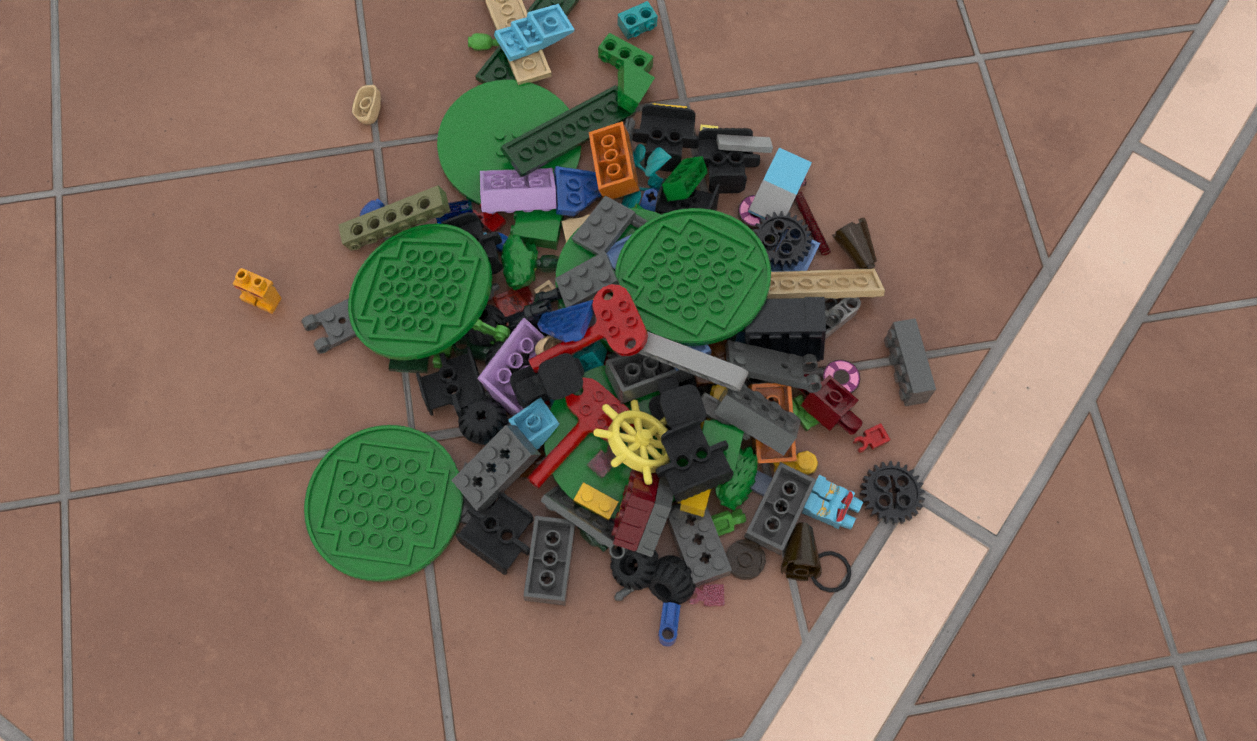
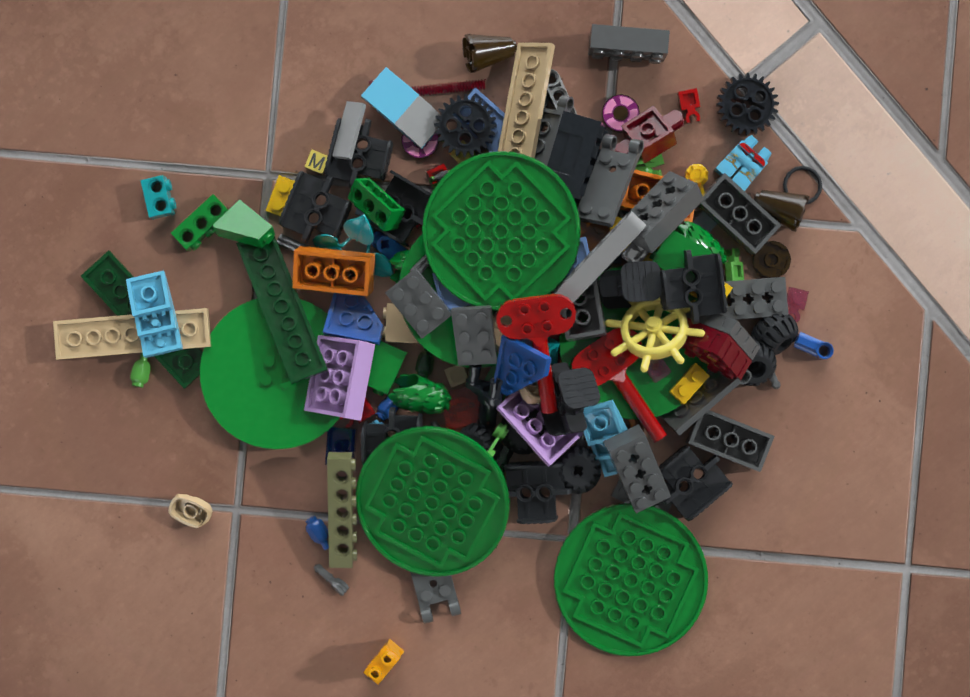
camera: 75 degrees left, 20 degrees up
(324, 240) = (336, 583): none -> dark grey piece

